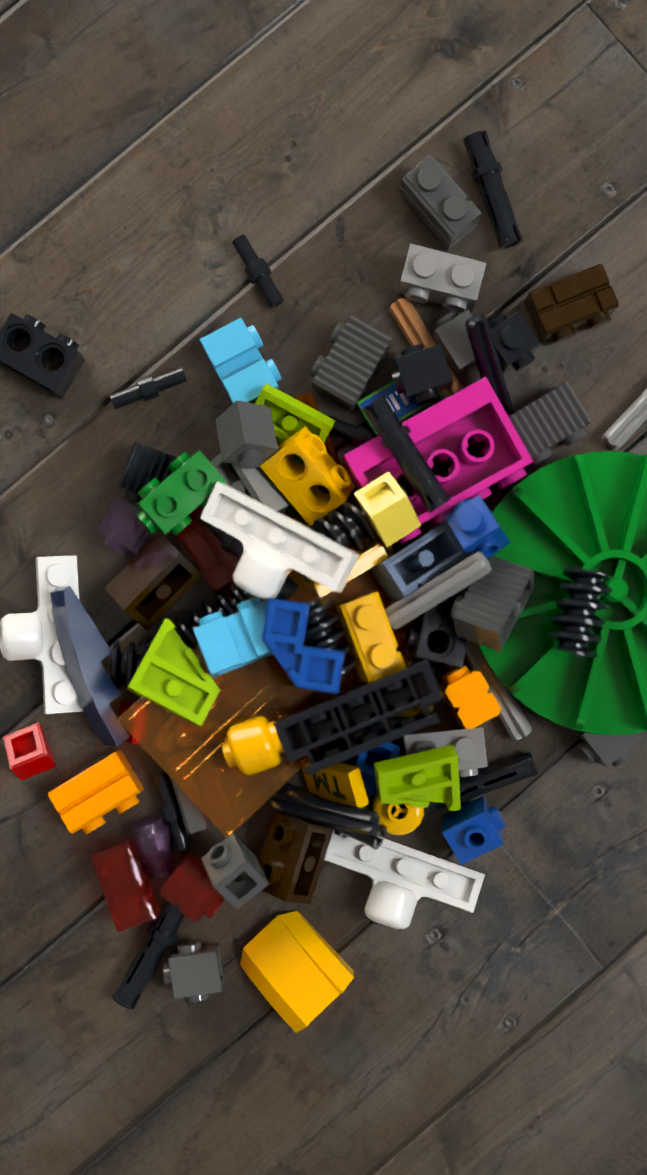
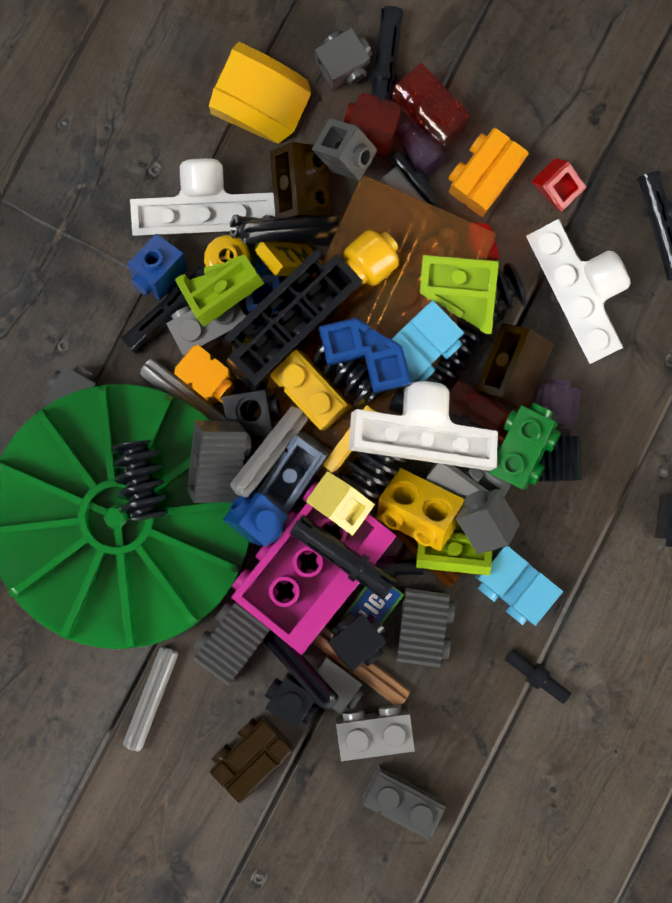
camera: 155 degrees right, 0 degrees up
(82, 652) = (548, 280): dark blue slope -> none
(148, 388) = (589, 533): black bar -> none
(487, 174) = (365, 839): black pin -> none

